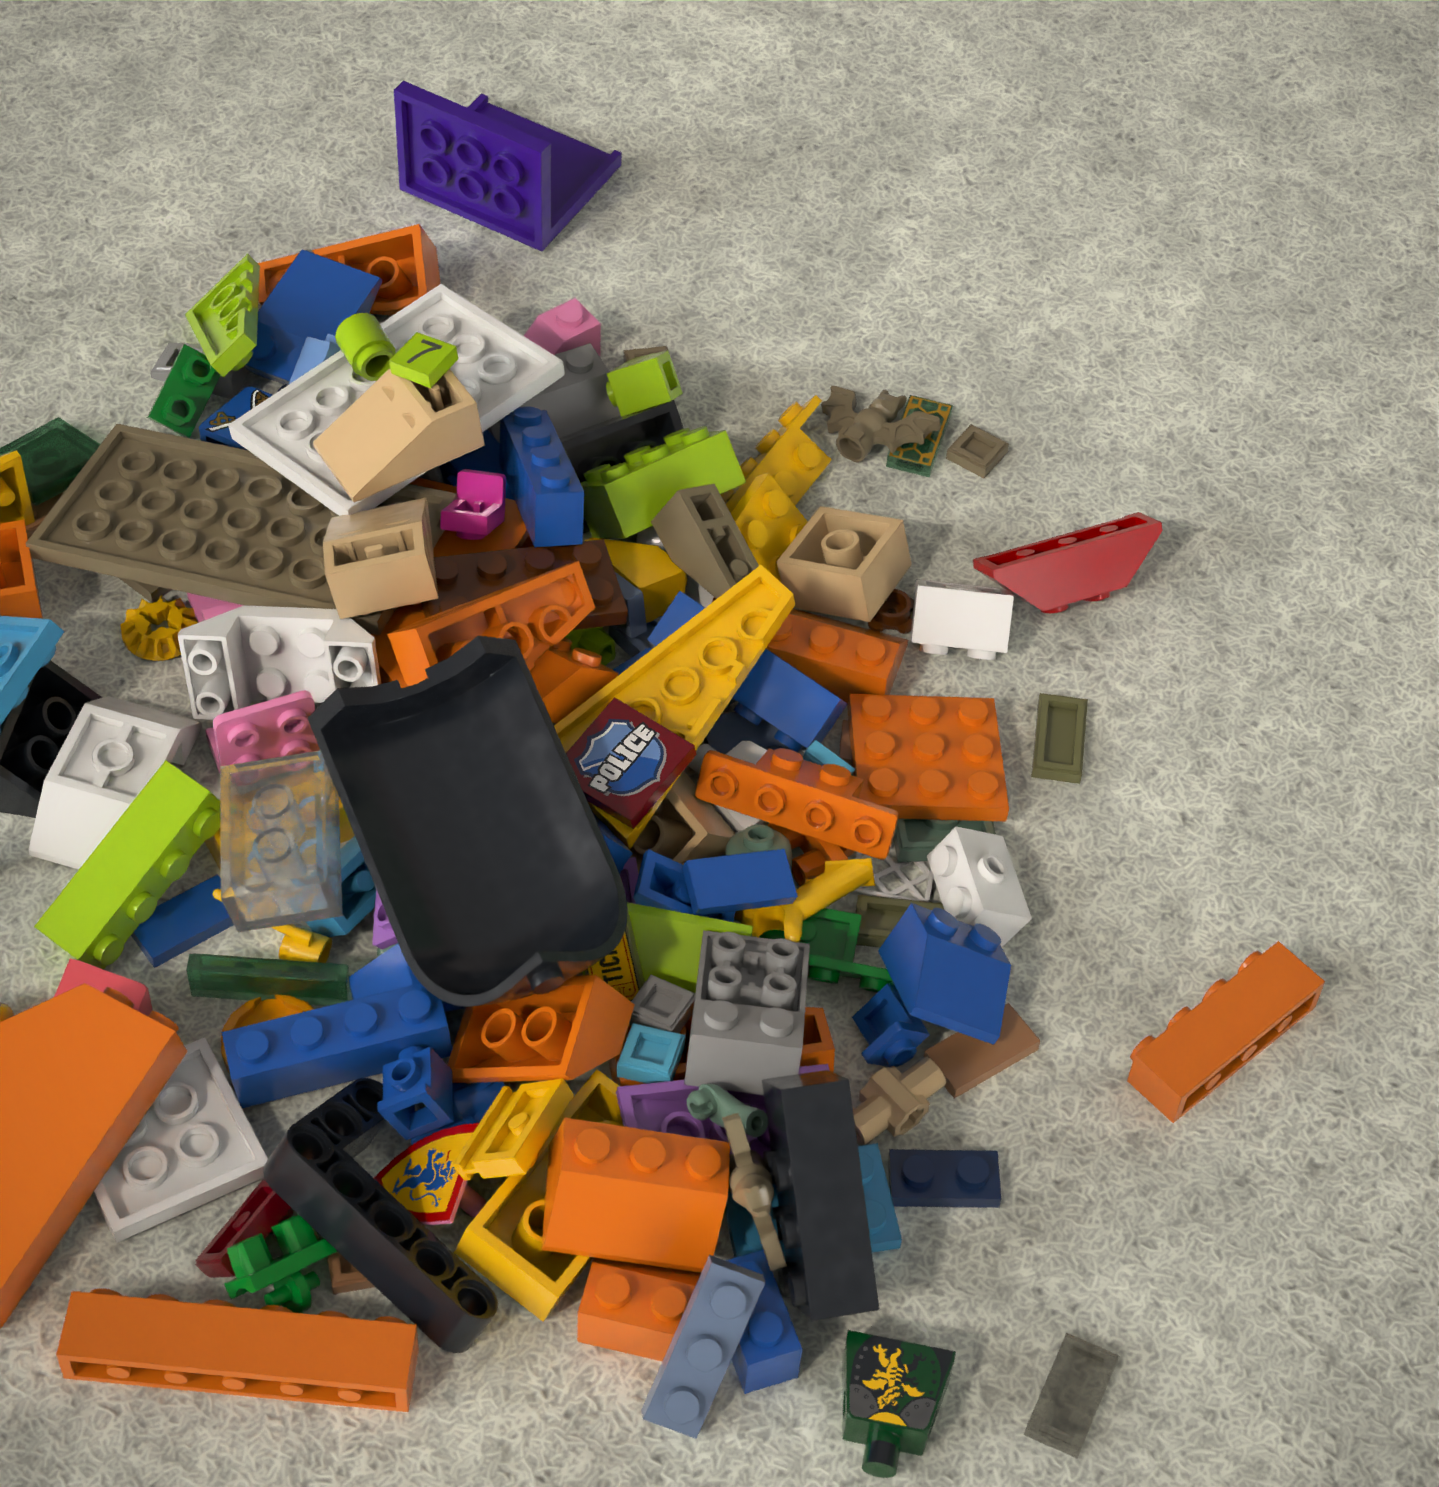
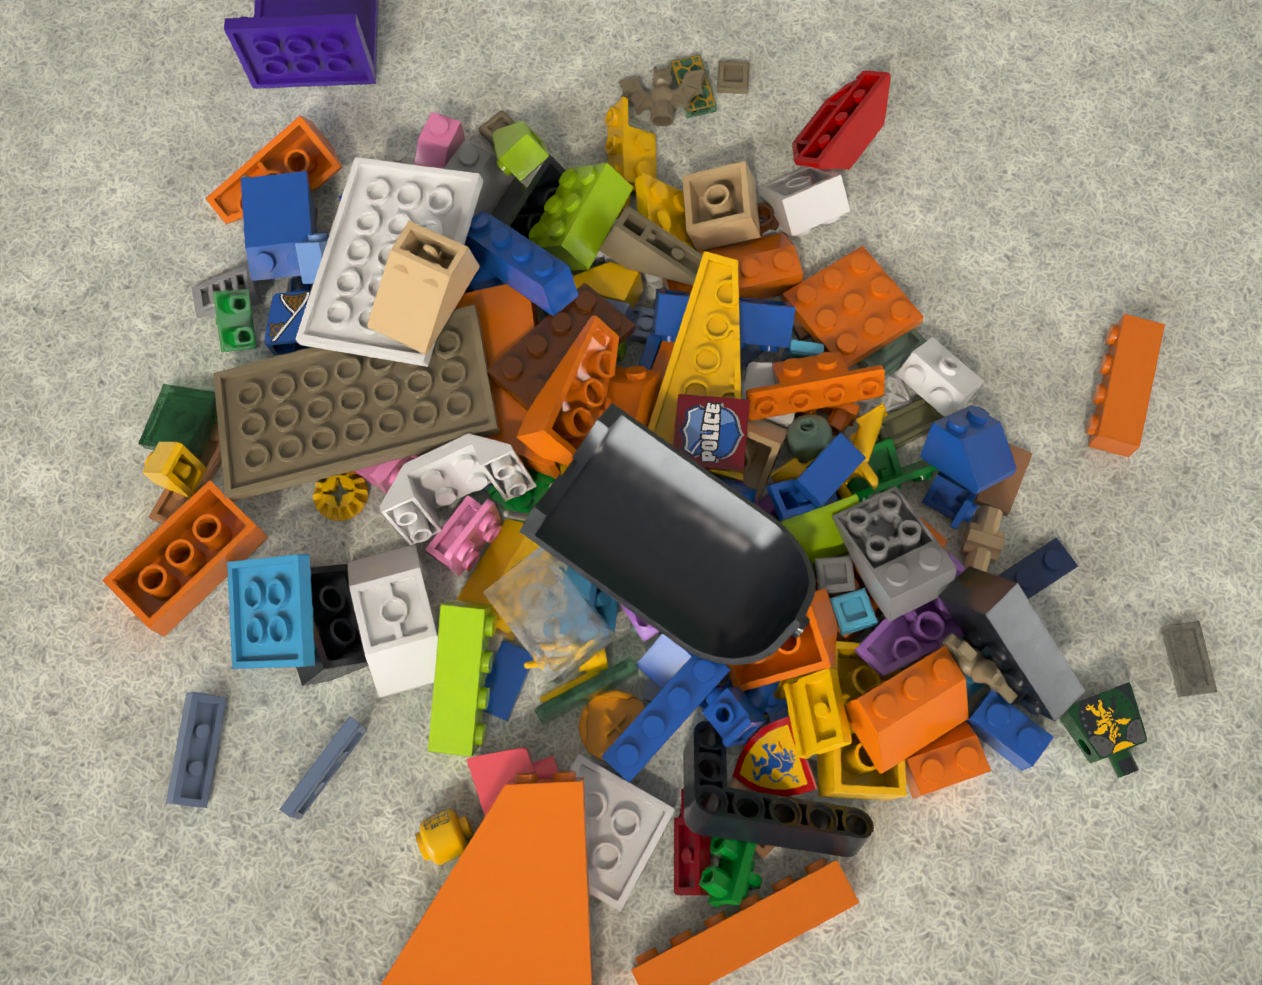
camera: 25 degrees left, 20 degrees up
(228, 317) = (226, 255): lime wing -> none
(365, 345) = (347, 234): lime brick -> none
(380, 558) = (471, 382): tan slope -> none
(423, 359) = (411, 234): lime tile -> none
(477, 506) = (493, 306): dark pink bracket -> none
(702, 1346) = (1003, 771): sand blue plate -> none
(716, 1103) = (915, 624): sand green arm -> none
(1059, 738) = (909, 247): olive tile -> none

